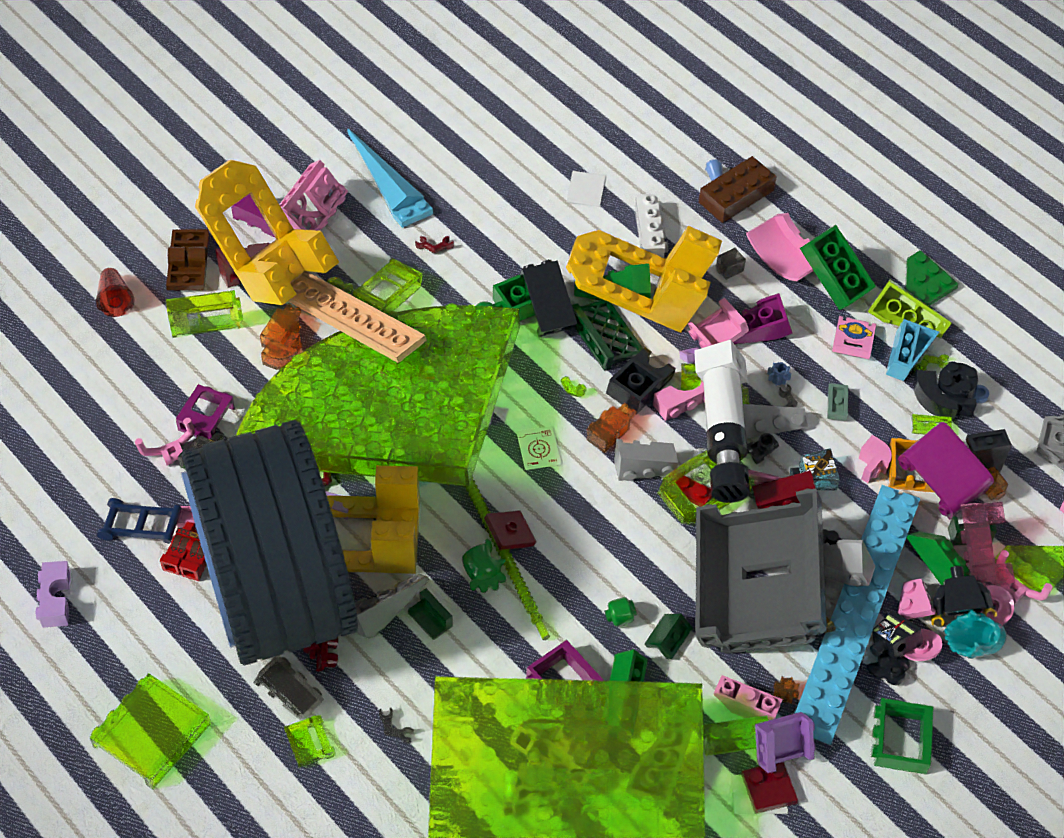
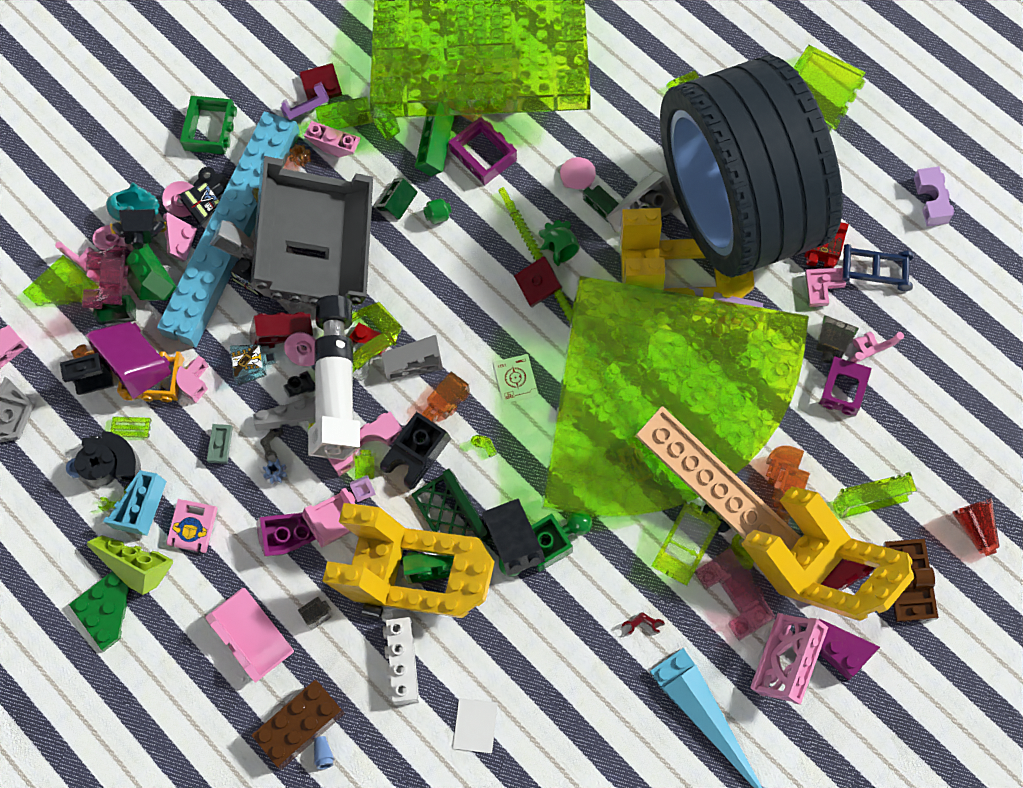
camera: 175 degrees left, 15 degrees up
(319, 189) = (780, 667): bright pink plate -> none
(350, 266) = (740, 589): none -> clear pink bracket
(395, 732) = (621, 105): clear smoke arm -> none
(455, 651) = (577, 173): none -> bright pink dish
(837, 267) = (198, 593): green brick -> none

